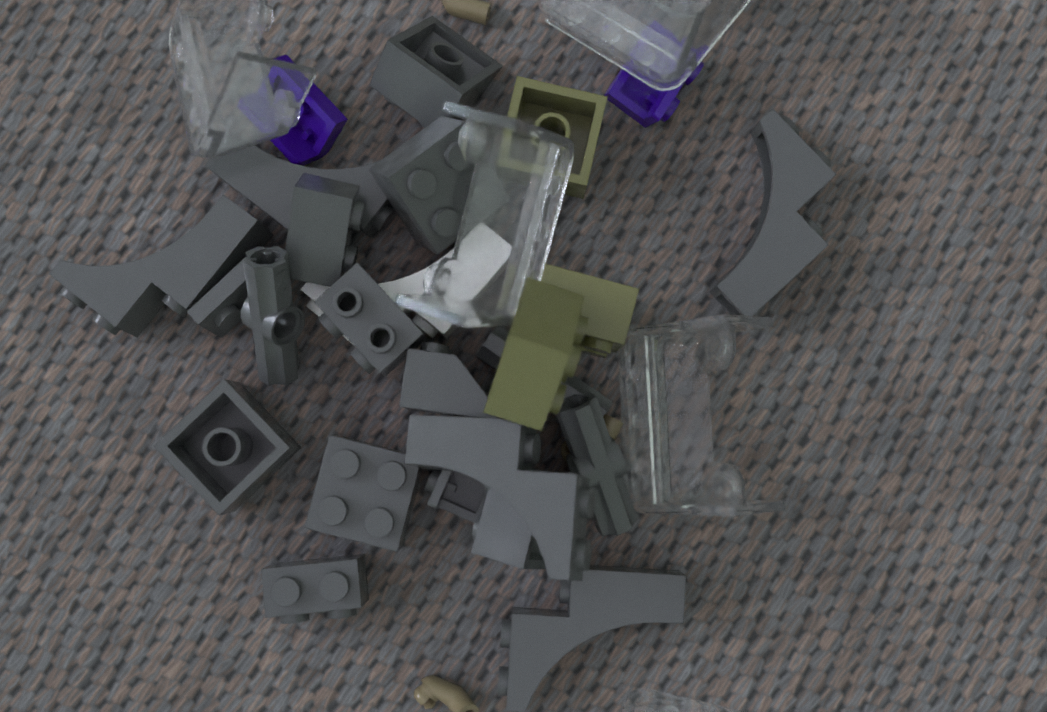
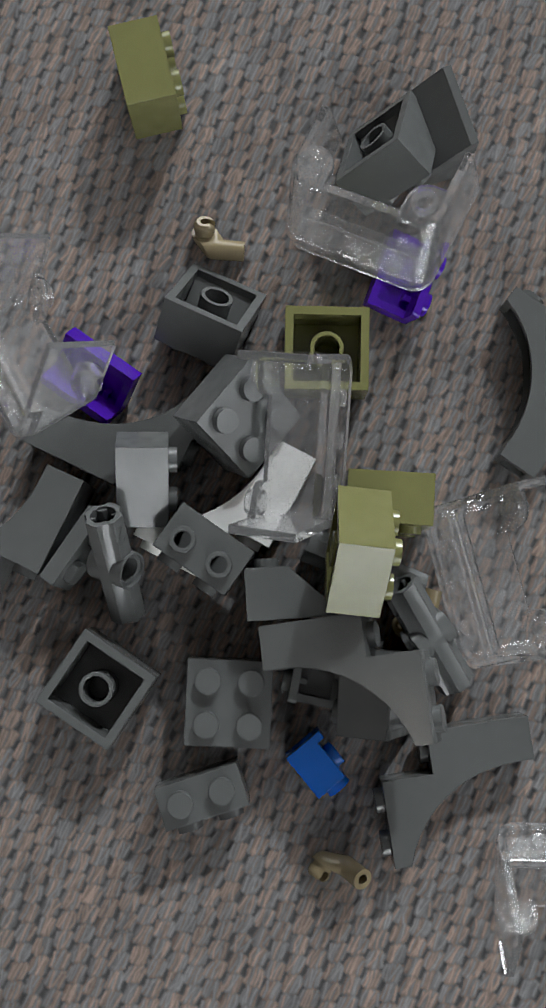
camera: 10 degrees left, 0 degrees up
(448, 581) = (318, 764): none -> blue brick

